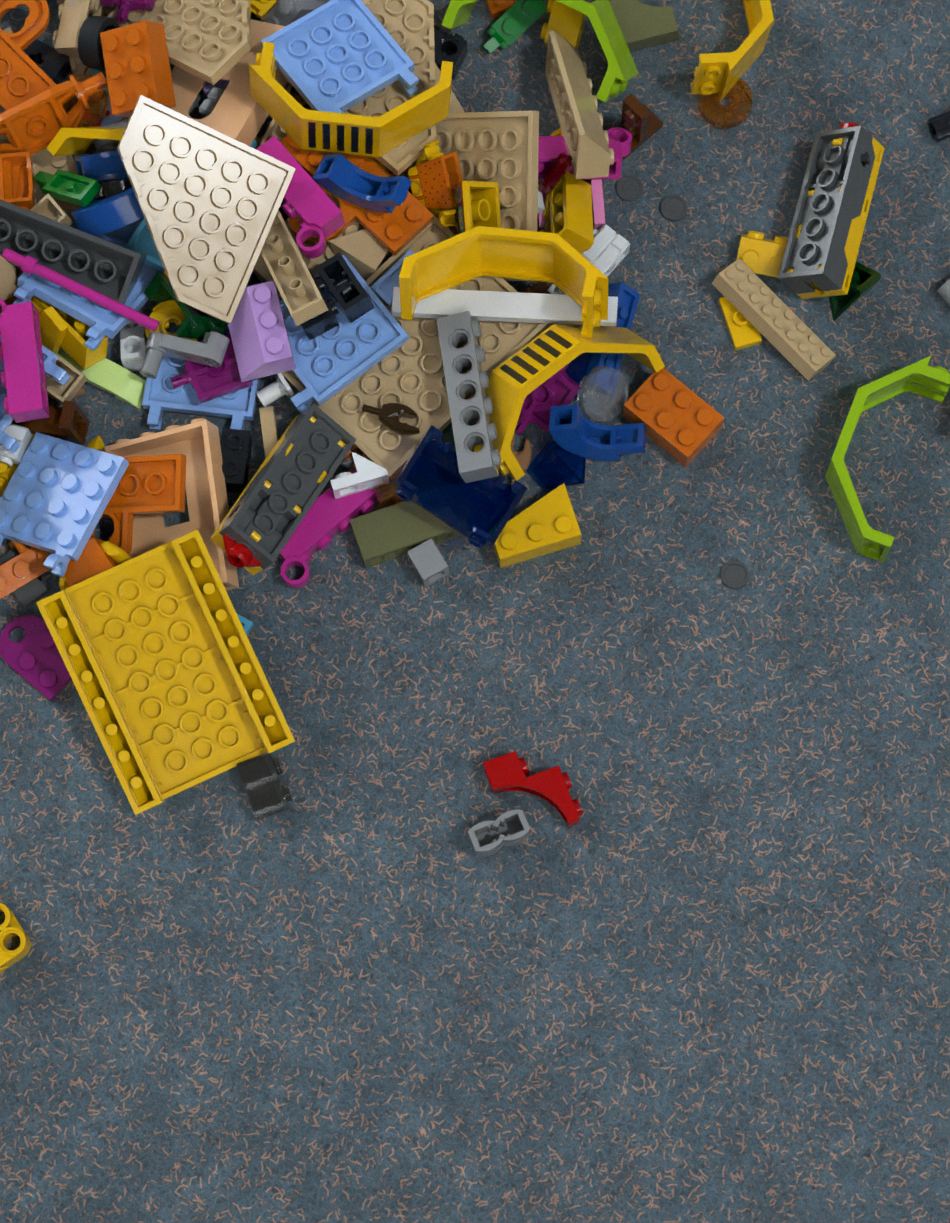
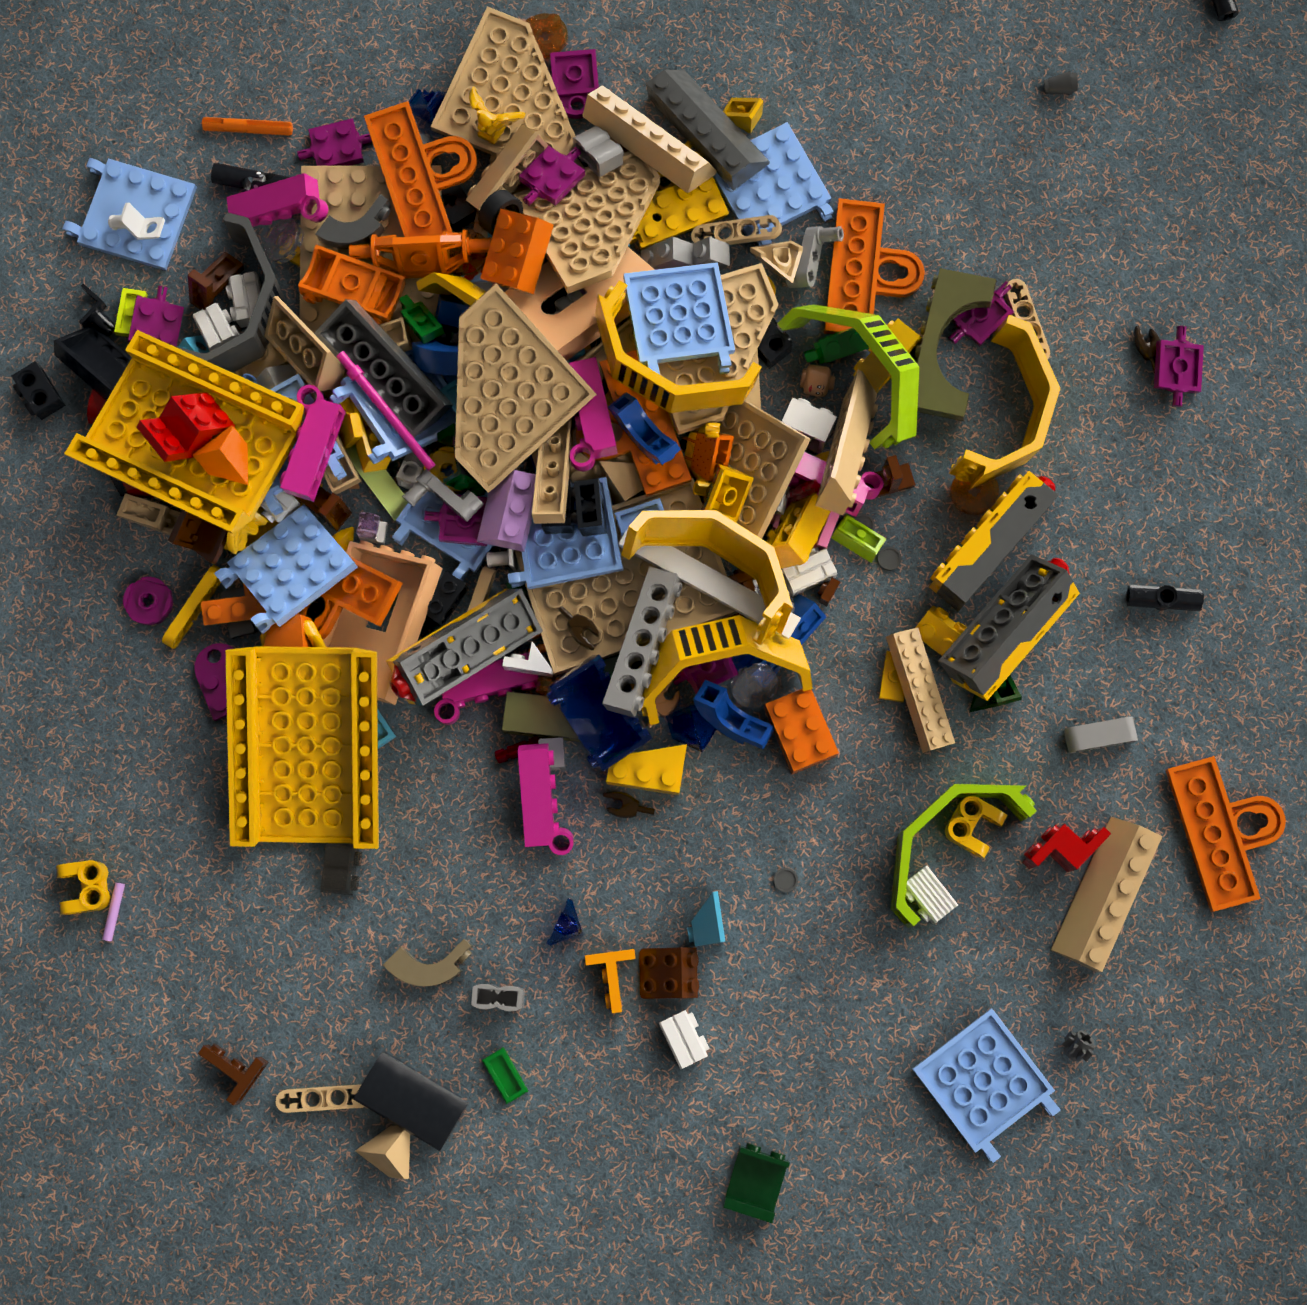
camera: 25 degrees right, 5 degrees up
(40, 950) = (113, 912): none -> lavender piece
(120, 423) = (371, 528): none -> clear purple leg
(256, 1046) = (235, 1070): none -> reddish brown bracket
(365, 1025) = (325, 1101): none -> tan beam
(389, 577) = (512, 751): none -> dark red axle
(406, 851) = (413, 972): none -> dark tan arch
(436, 610) = (537, 799): none -> dark pink hinge
(461, 984) = (411, 1101): none -> black slope
(465, 1050) = (389, 1152): none -> tan slope
(509, 66) = (817, 380): none -> medium nougat head
(530, 98) = (811, 422): none -> white brick
(535, 578) = (629, 807): none -> dark brown hand
(535, 726) = (567, 926): none -> clear blue slope
(546, 912) = (505, 1075): none -> green tile
(552, 785) = (559, 979): red arch -> none
(604, 754) = (610, 974): none -> light orange bracket
(628, 267) = (827, 591): none -> reddish brown plate
(632, 202) = (858, 538): none -> lime slope
(662, 724) = (668, 973): none -> reddish brown bracket
(680, 652) = (707, 924): none -> medium azure slope
(713, 782) = (683, 1038): none -> white brick
(769, 137) = (994, 539): none -> dark grey piece
(862, 890) = (756, 1182): none -> dark green panel
(889, 426) = (969, 822): none -> yellow piece
(891, 516) = (929, 896): none -> white brick

